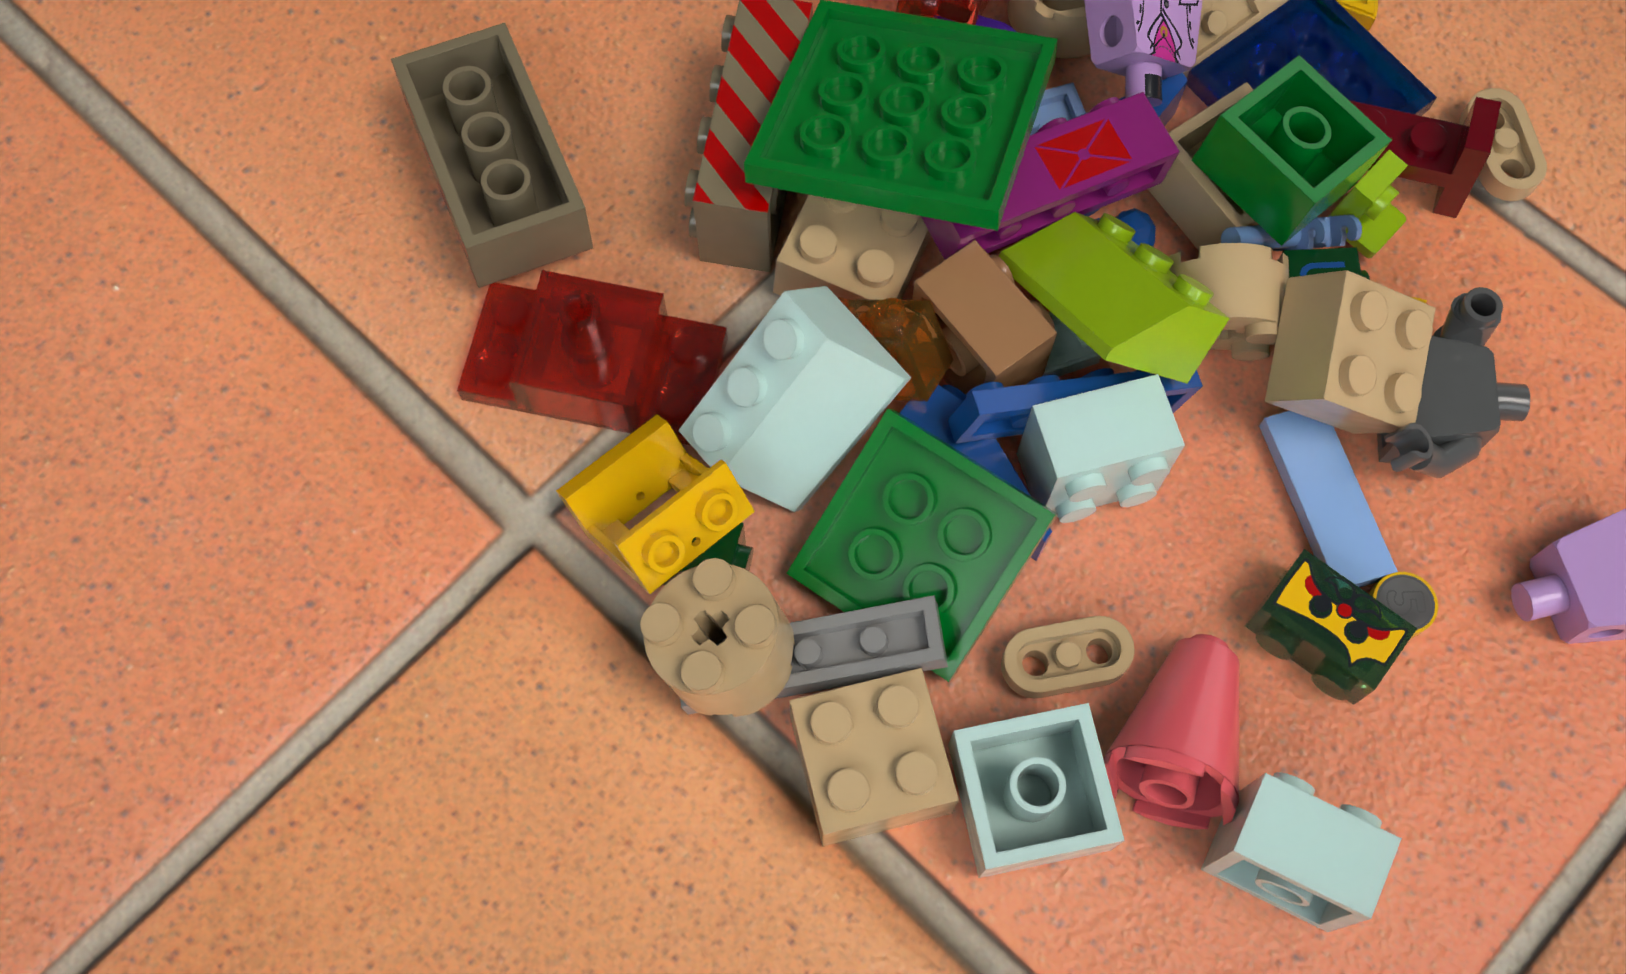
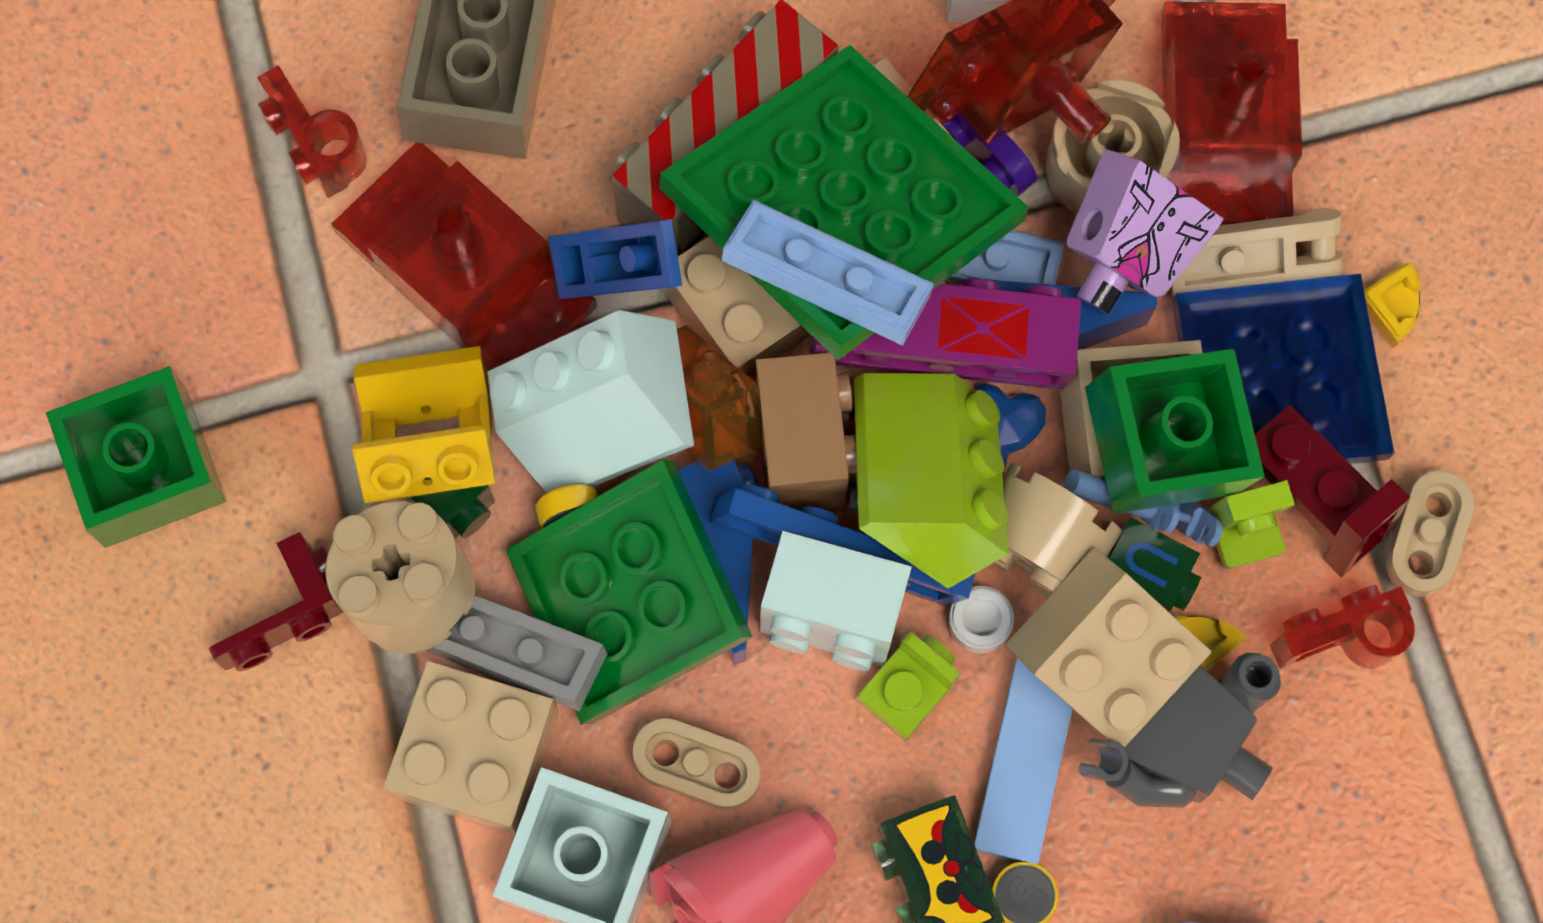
camera: 30 degrees right, 5 degrees up
(388, 326) = (311, 133): none -> clear red plate
(407, 678) = (135, 457): none -> green brick
(631, 692) = (300, 620): none -> dark red bracket
(743, 264) = (616, 259): none -> blue slope
(811, 505) = (562, 501): none -> yellow tile
(945, 161) = (827, 272): none -> light blue tile
(1196, 490) = (910, 684): none -> lime bracket
(1213, 408) = (982, 620): none -> white tile
(1502, 247) = (1313, 634): none -> clear red plate

